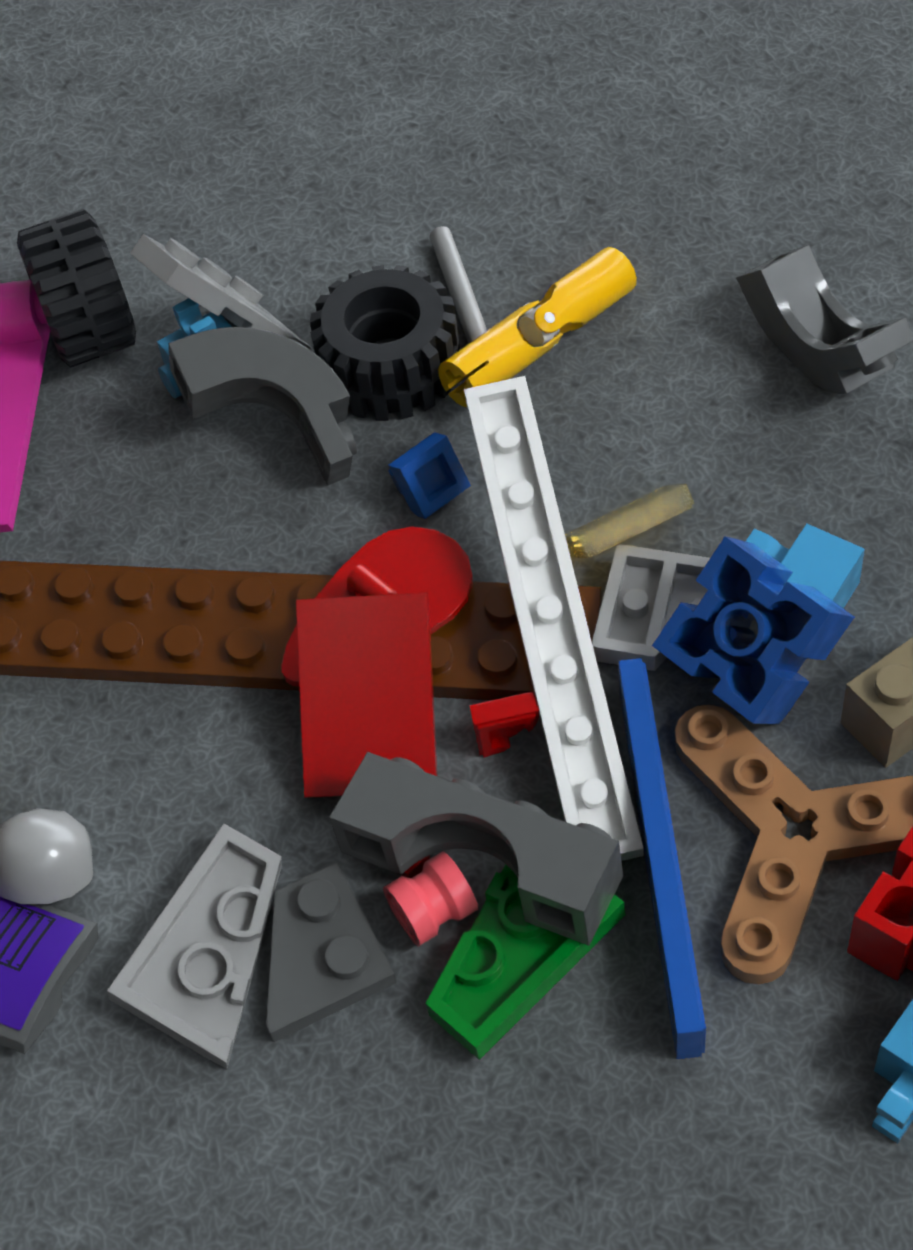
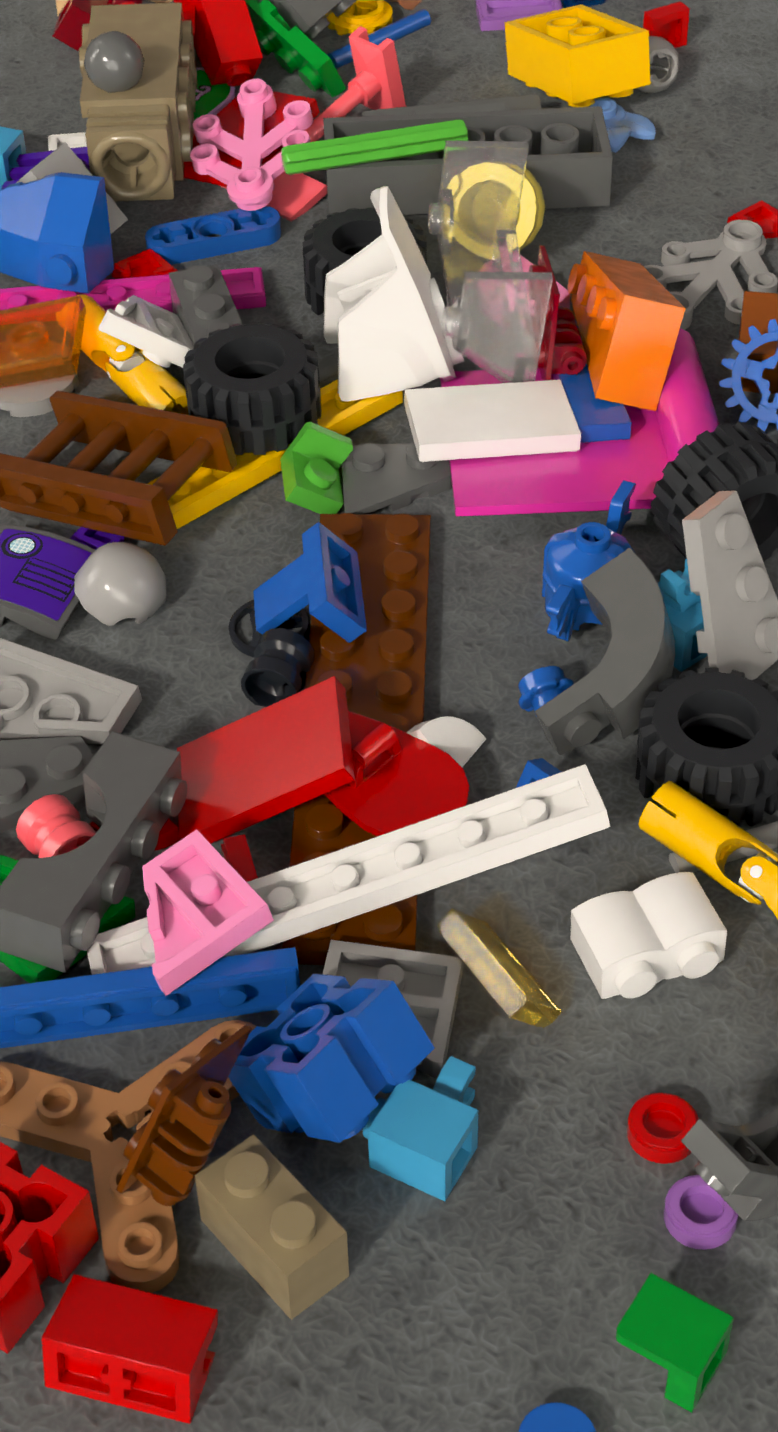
camera: 80 degrees right, 10 degrees down
(119, 670) = (323, 578): none -> blue piece
(137, 417) = (576, 555): none -> blue helmet
(210, 697) = (277, 667): none -> black wheel
(278, 473) = (541, 687): none -> blue plate
(332, 551) = (451, 736): none -> white tile
(582, 733) = (197, 910): none -> bright pink wing
(596, 412) = (648, 935): none -> white brick
(787, 425) = (659, 1125): none -> red tile
(835, 728) = (183, 1124): none -> reddish brown hinge
(870, 408) = (698, 1214): none -> medium lavender tile

